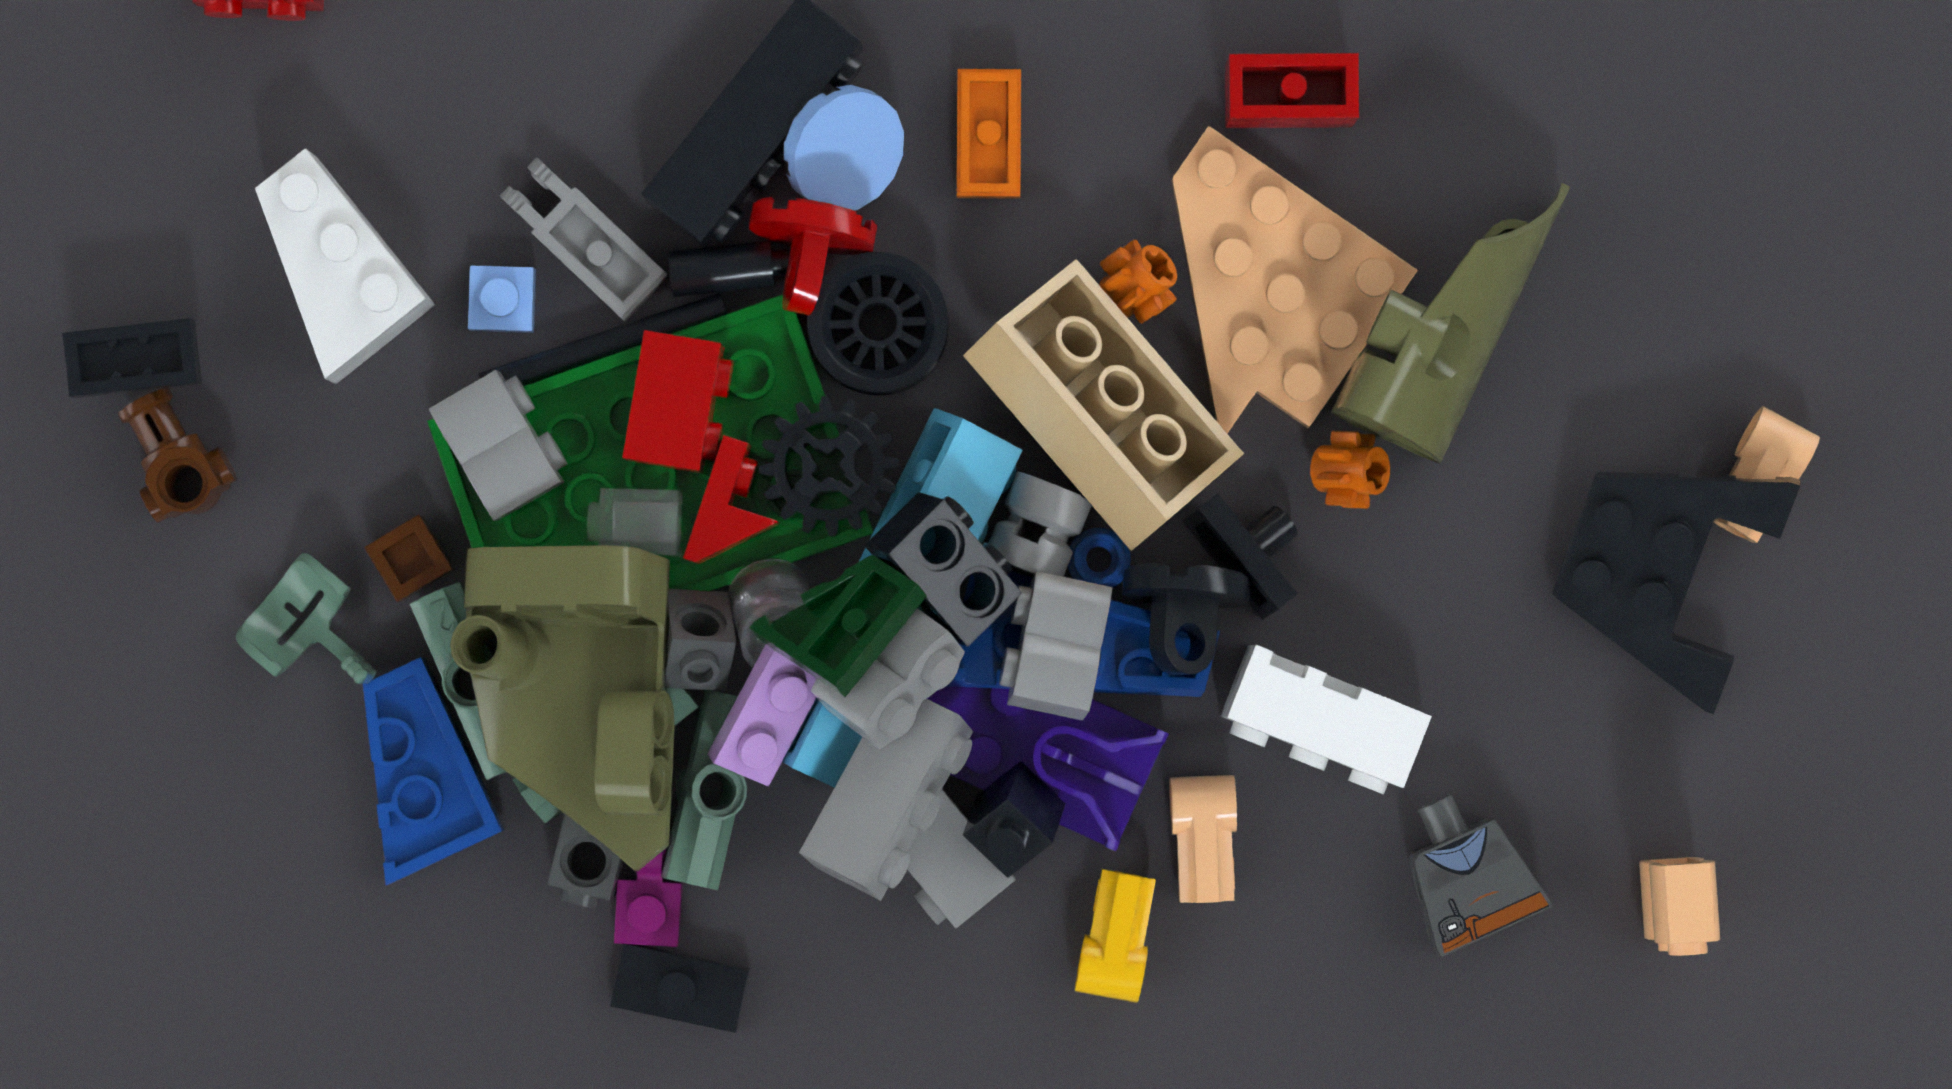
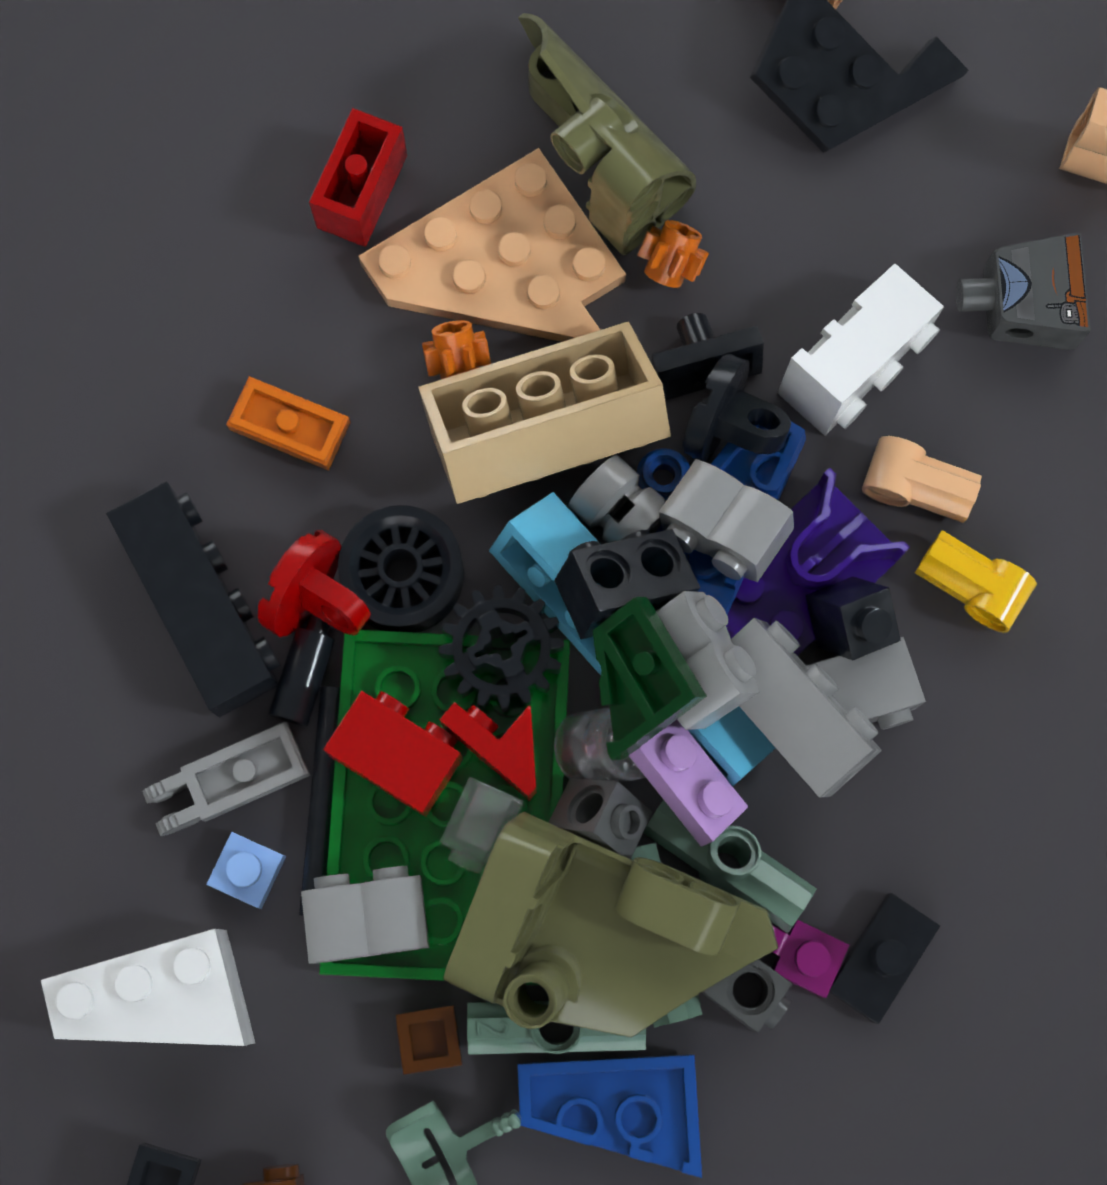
camera: 70 degrees left, 10 degrees down
(844, 147) = (244, 532): light blue tile -> none

